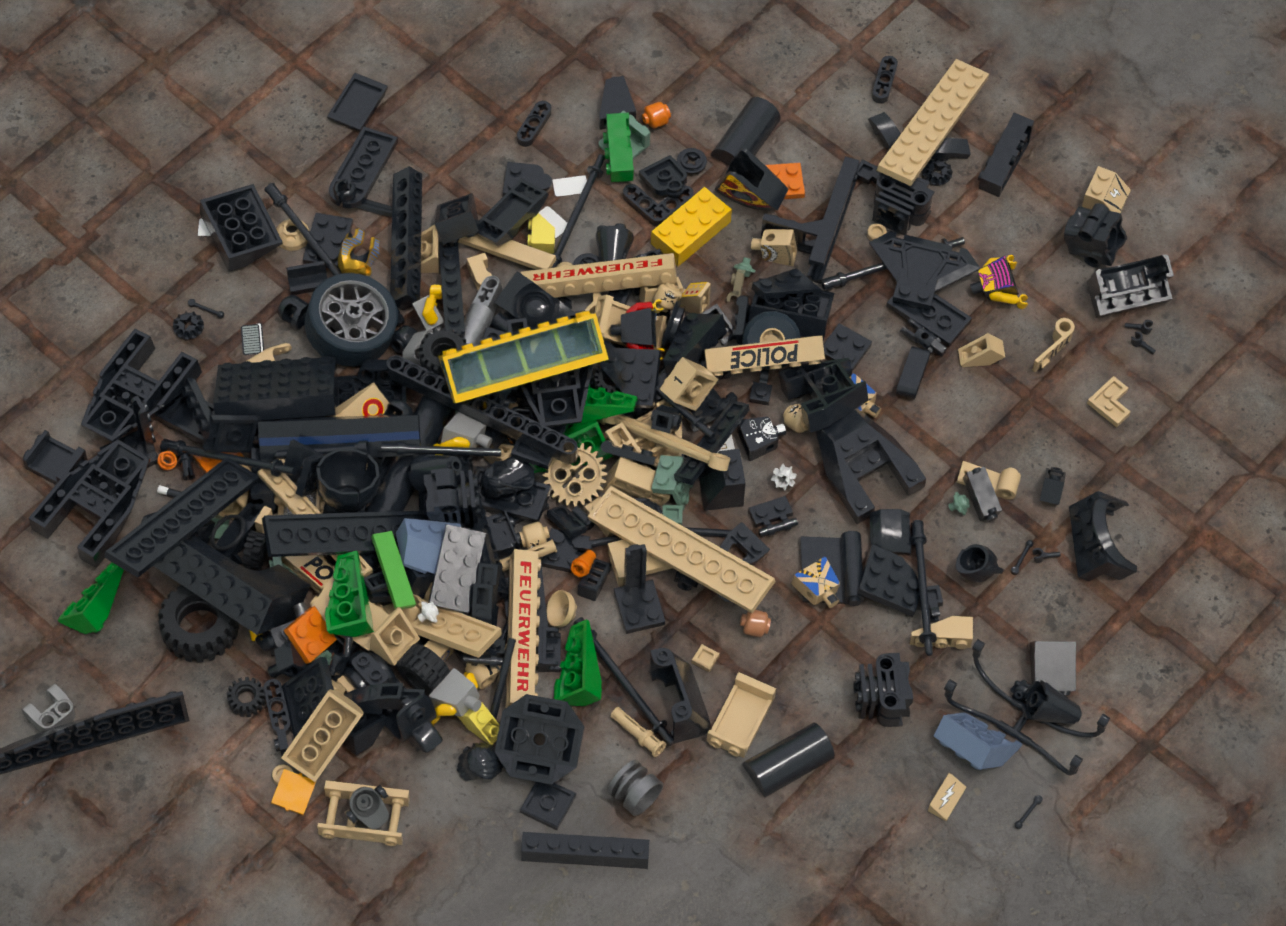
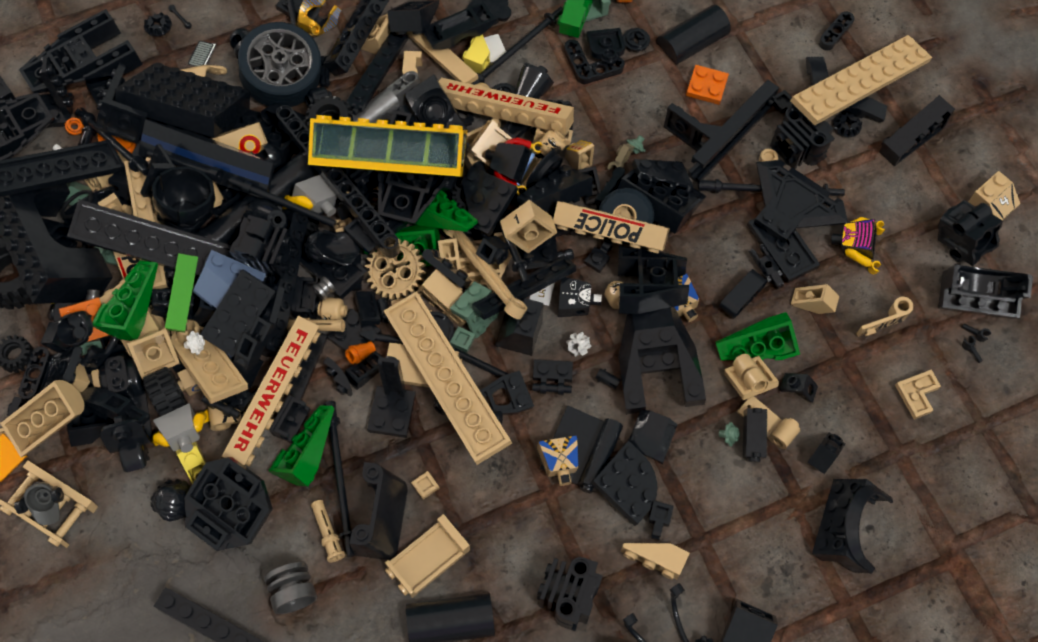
camera: 25 degrees right, 5 degrees up
(306, 277) = (267, 14): black panel -> none
(316, 639) = (75, 328): none -> black hair
(427, 309) = (347, 78): torso -> none
(502, 677) = (229, 429): black bar -> none
(520, 517) = (323, 288): none -> flat silver wheel
(548, 803) = (212, 567): black tile -> none
(557, 609) = (319, 386): tan piece -> none
(569, 185) = (523, 24): white sticker -> none
(582, 598) = (340, 380): none -> black slope
(691, 226) = (607, 93): yellow brick -> none
(751, 183) = (675, 73): black piece -> none
(755, 623) = (485, 472): nougat head -> none
(777, 246) = (673, 136): tan torso -> none
(825, 498) = (607, 378): none -> black pin
(846, 344) = (694, 246): black plate -> none
(918, 540) = (675, 453): black bar -> none
(953, 406) = (767, 339): none -> green wedge
(954, 445) = (750, 376): none -> tan plate
(977, 563) = (718, 501): black helmet -> none
(1001, 434) = (799, 384): none -> black bracket
(1015, 570) = (755, 519): black hinge -> none
(1043, 555) = (789, 517): black hand -> none

